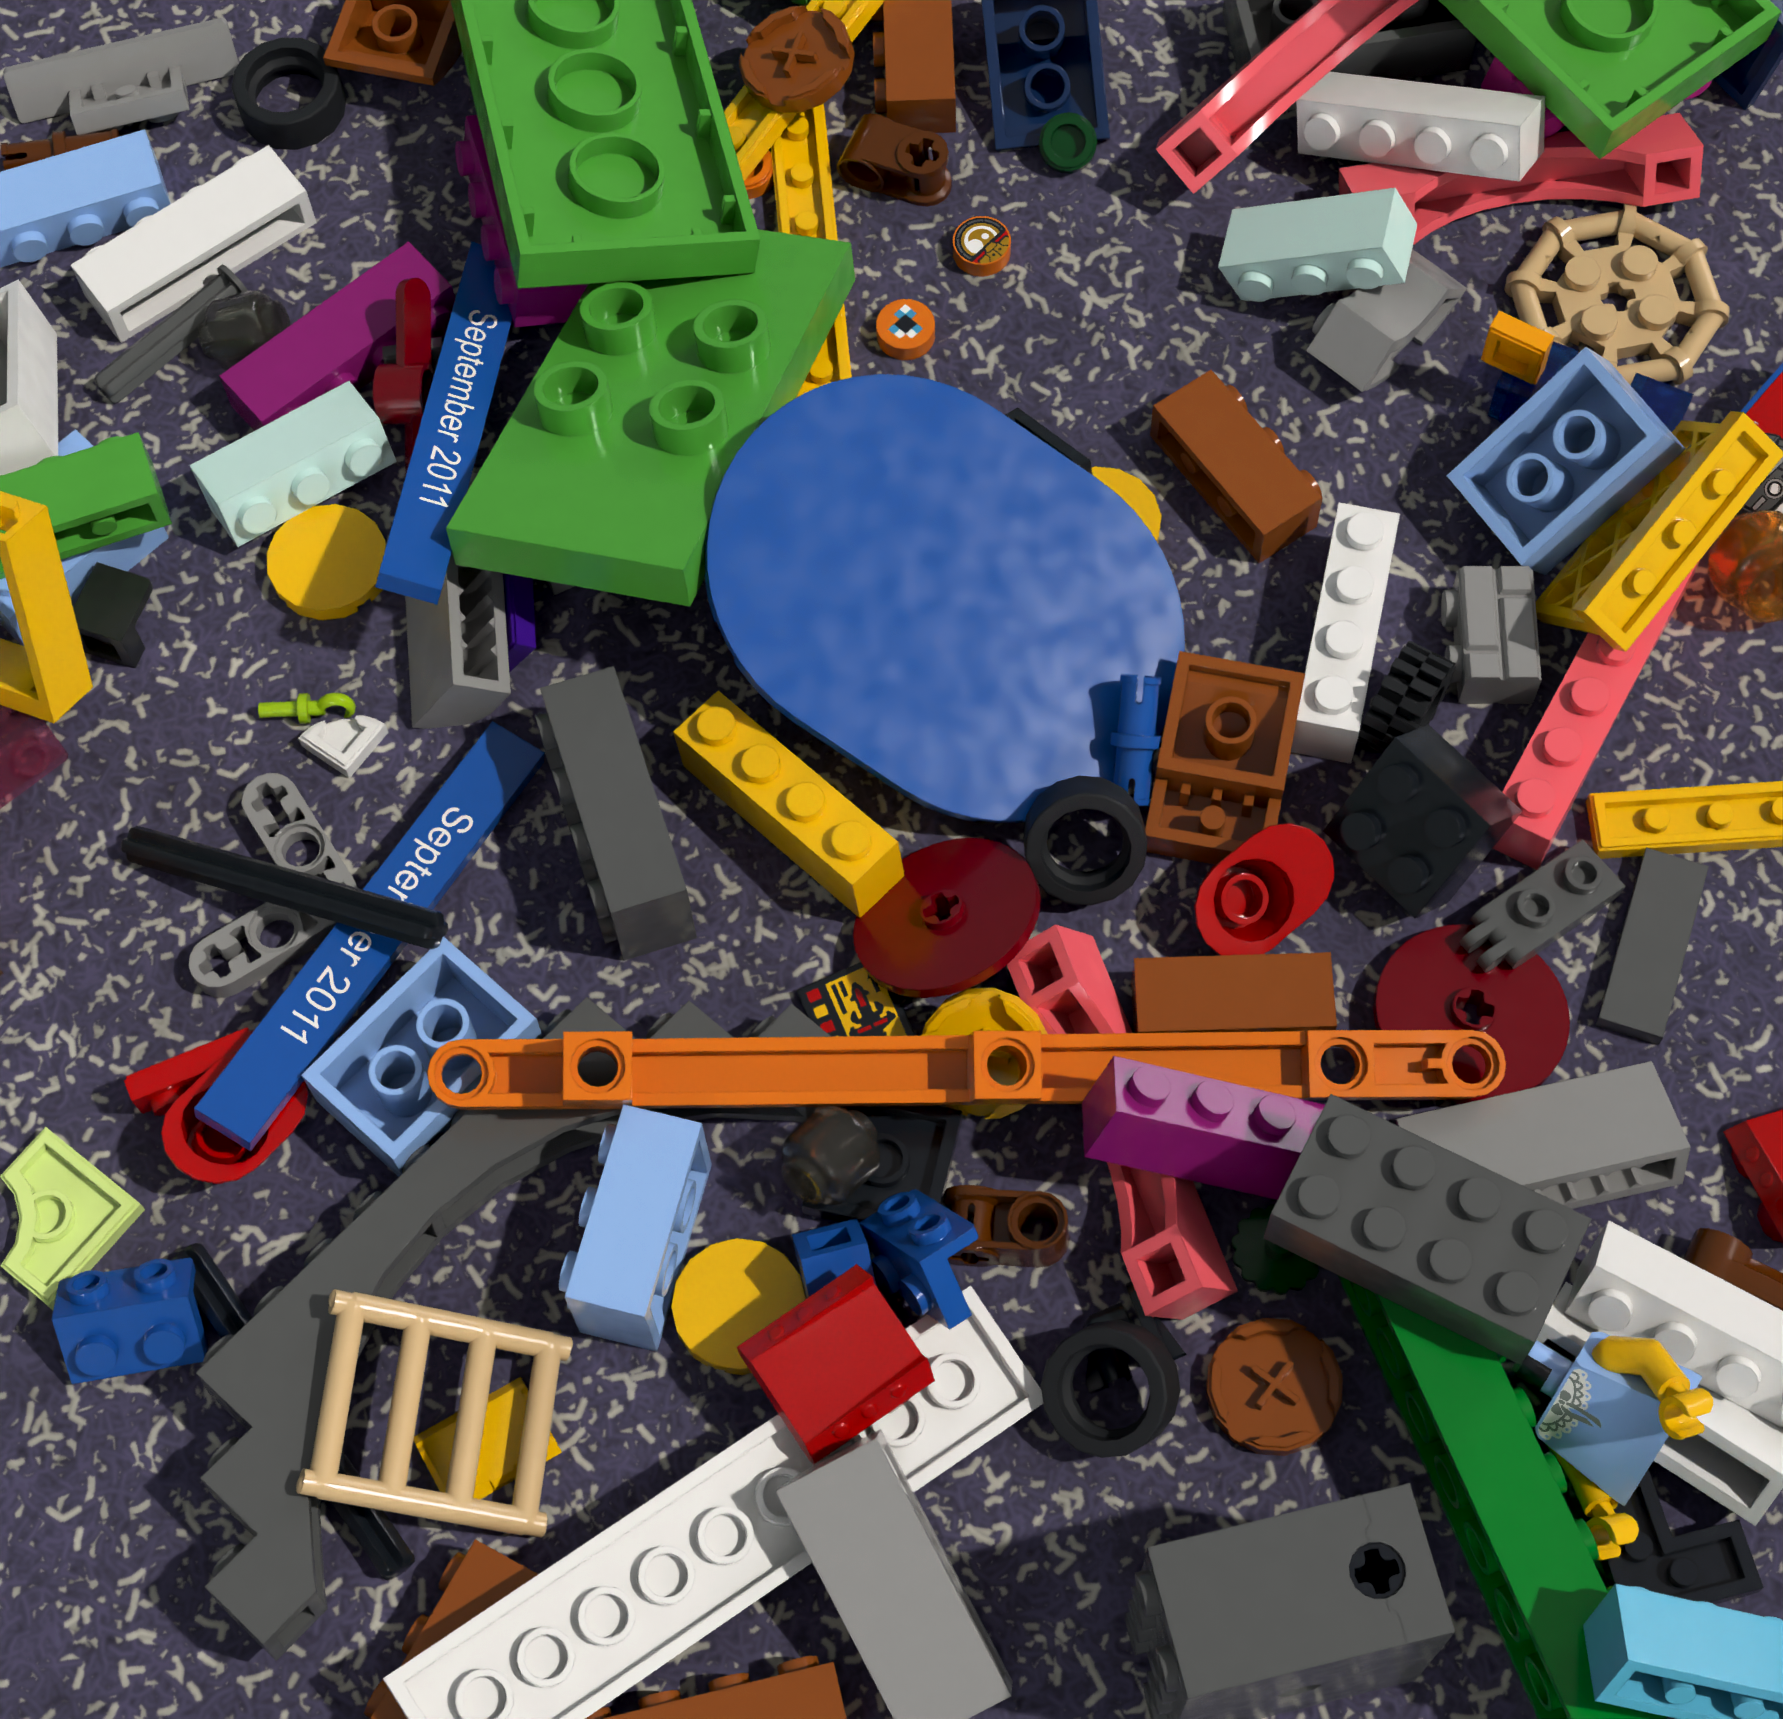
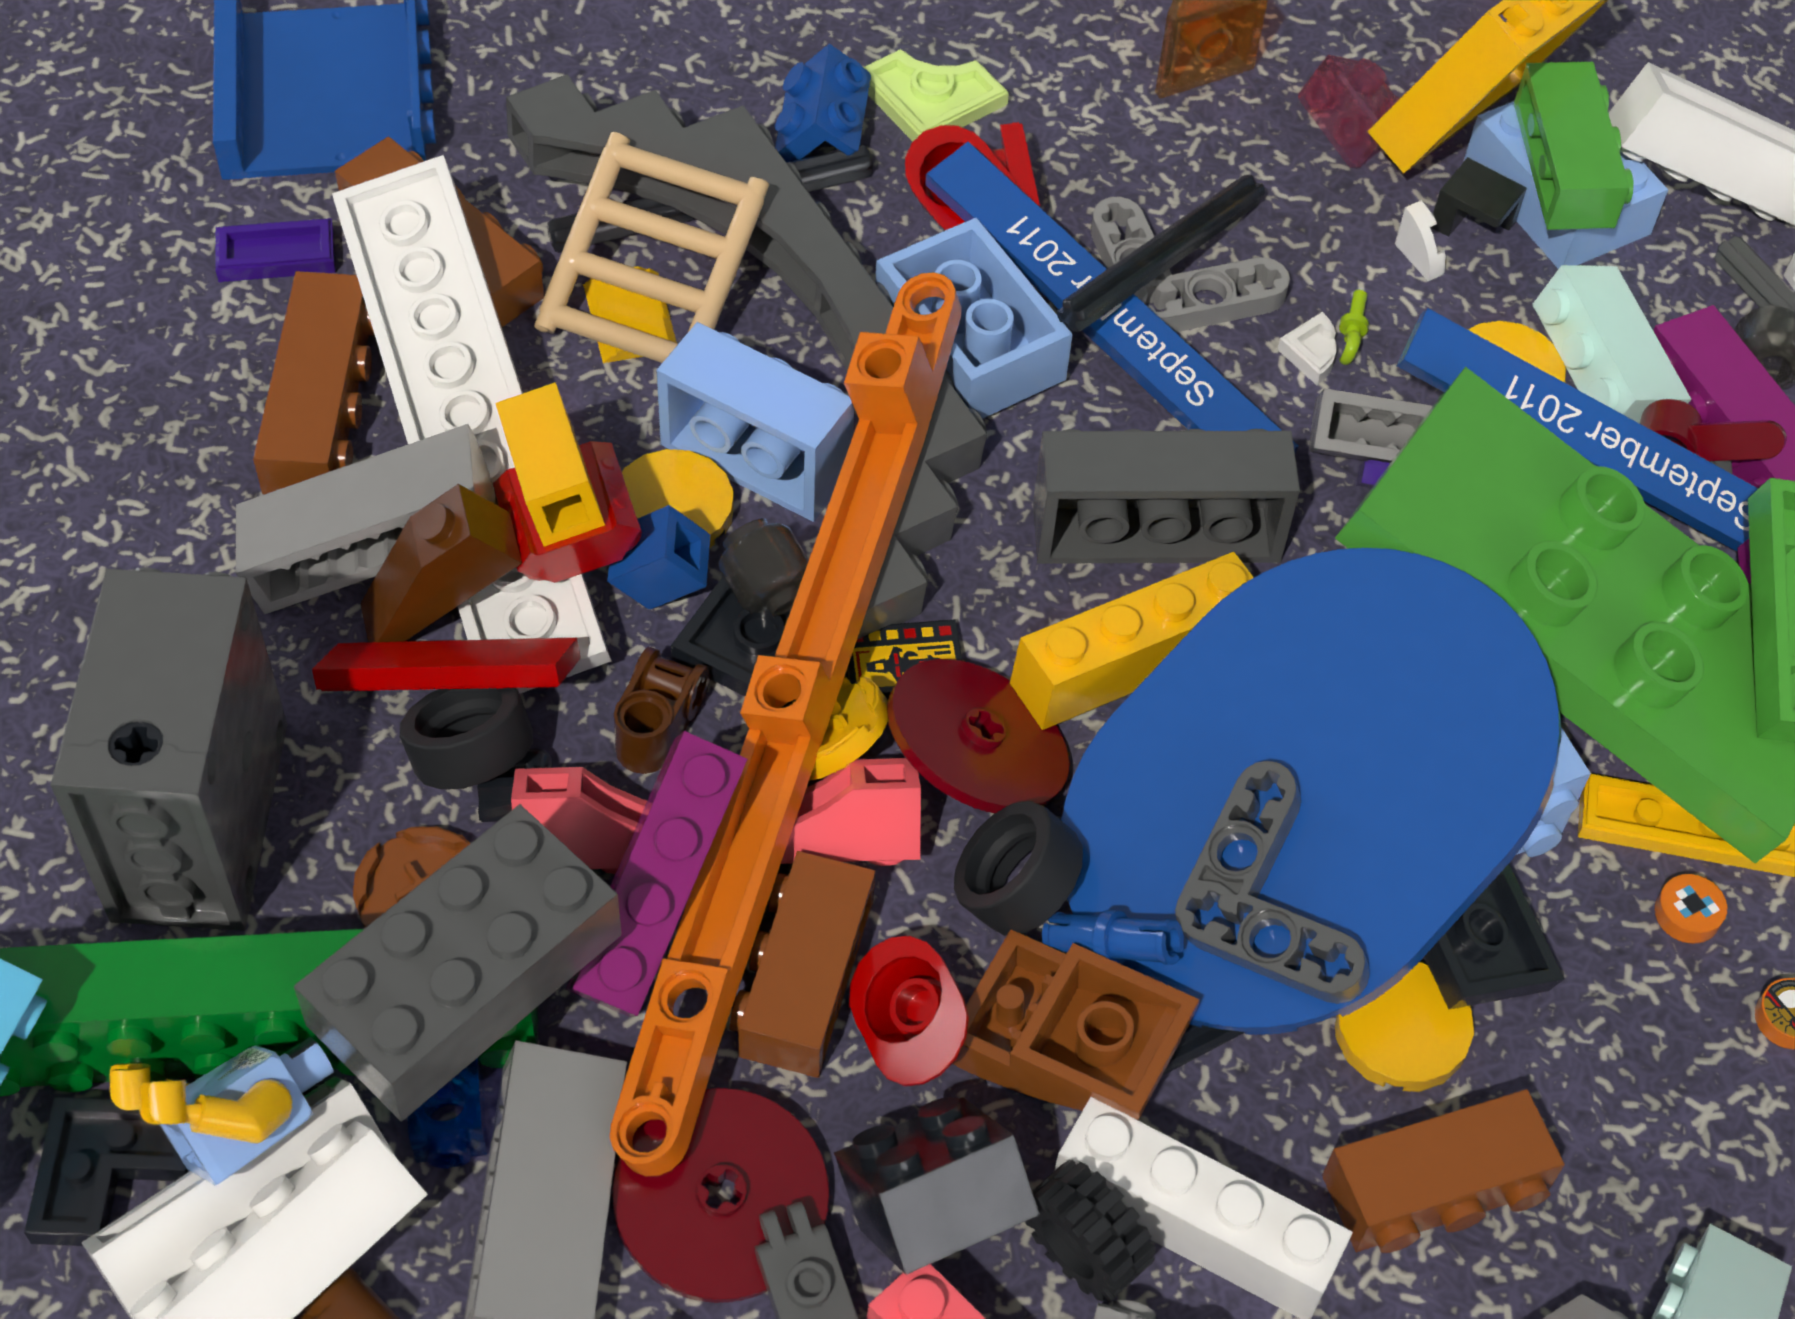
camera: 100 degrees right, 10 degrees down
(175, 664) = (1418, 243): none -> white tile
(813, 1374) = (549, 464): none -> yellow brick
(911, 1250) = (640, 604): blue bracket -> none
(951, 1475) = (439, 563): none -> reddish brown slope
(1042, 1437) = (447, 664): none -> red tile
(1070, 634) = (1239, 892): none -> dark grey beam

